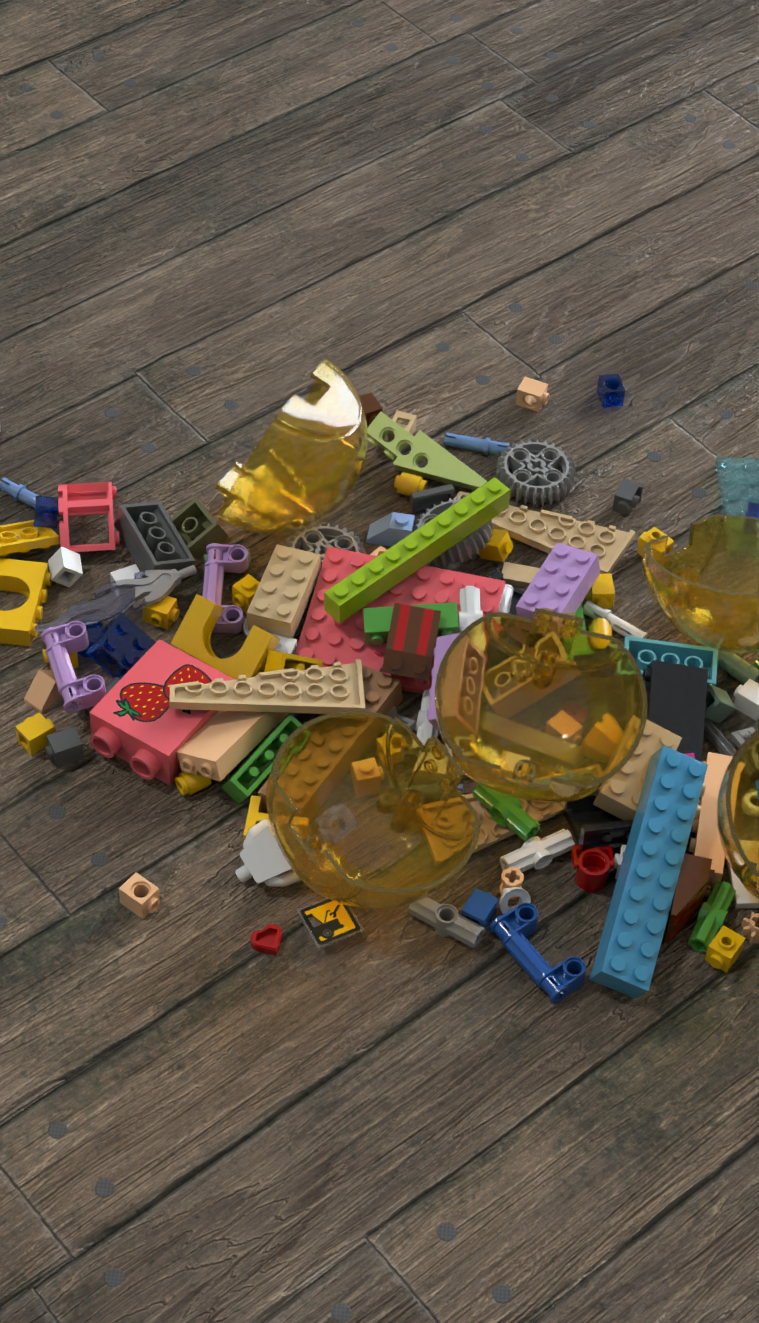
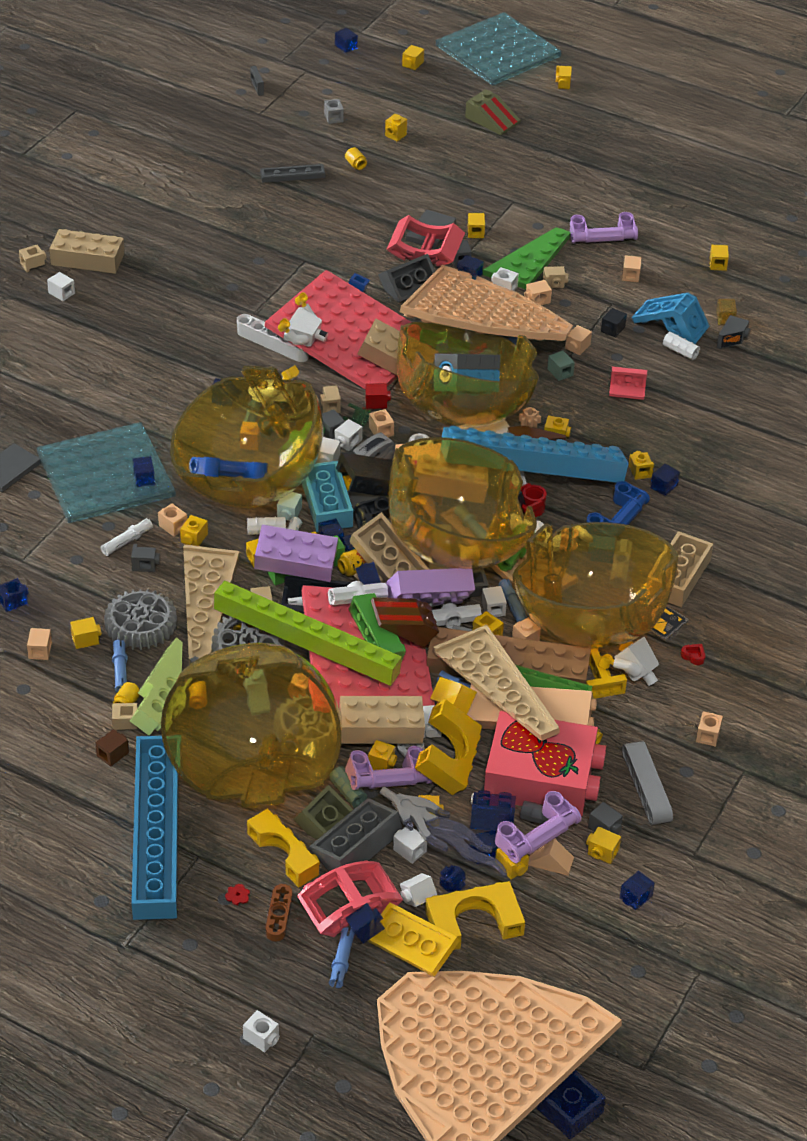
camera: 110 degrees left, 5 degrees down
(64, 597) = (452, 878): none -> clear blue gear
(94, 467) = (283, 919): none -> dark orange beam
(96, 806) = (647, 783): none -> light grey beam
(144, 452) = (237, 894): none -> red plant
(174, 499) = (269, 831): none -> yellow arch
(211, 400) = (155, 832): none -> dark azure brick
(404, 971) = (693, 559): none -> tan brick
(431, 432) = (127, 694): none -> yellow brick
(533, 426) = (85, 632): none -> yellow brick
(583, 1034) = (665, 479): none -> clear blue brick
(623, 1020) = (641, 460): none -> yellow brick
(642, 609) = (254, 524): none -> white axle
(666, 632) = (289, 506): none -> light aqua brick
(673, 500) = (132, 533): none -> white pin
(679, 531) = (172, 519): none -> light nougat brick
(722, 542) = (215, 467): none -> blue piece

